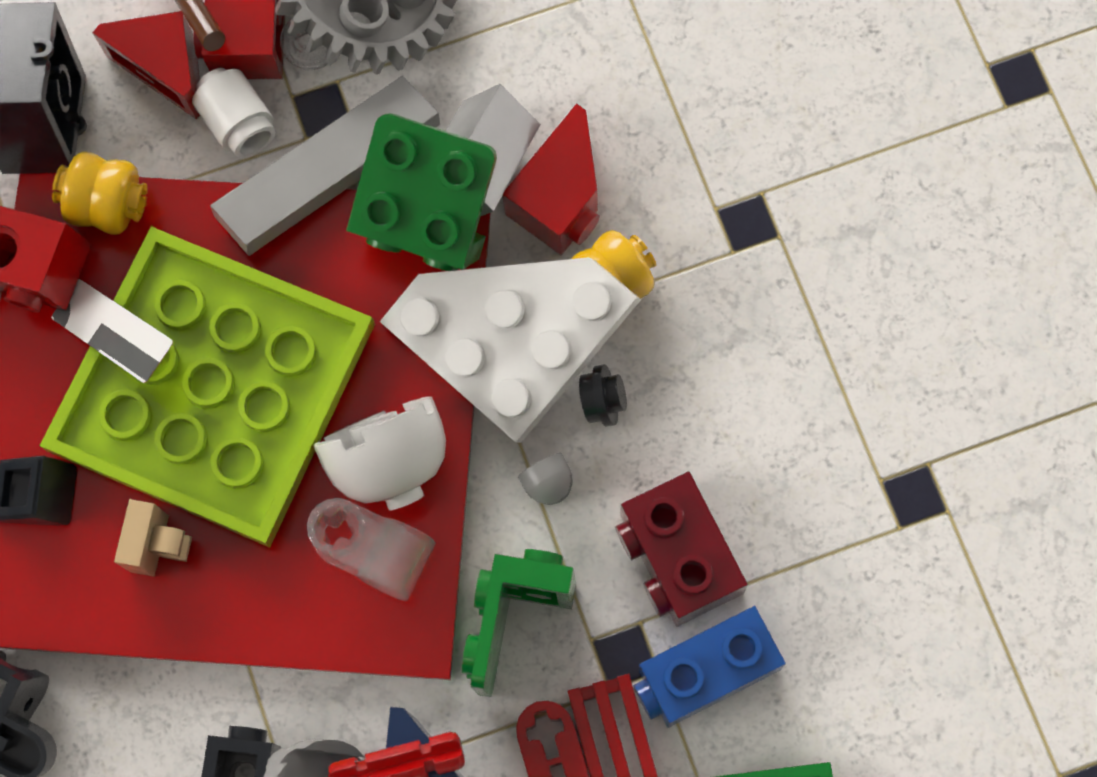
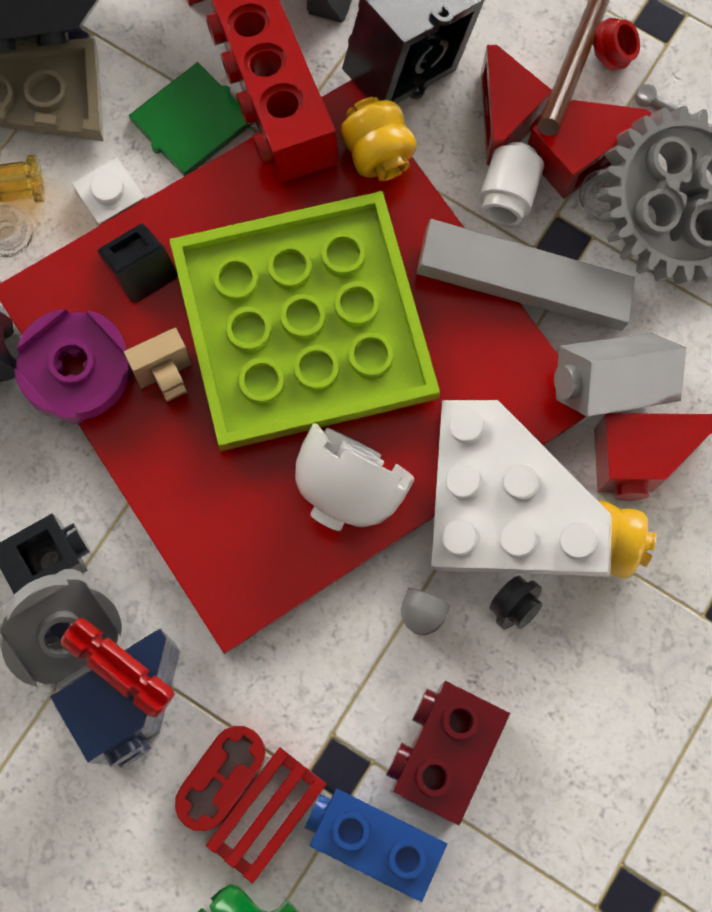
camera: 40 degrees right, 0 degrees up
(58, 594) = (72, 396): none -> magenta plate
(114, 331) = (286, 224): white sticker -> none
(378, 553) = (273, 529): clear piece -> none
(423, 192) = (559, 355): green bracket -> none
(533, 579) = (341, 658): green bracket -> none

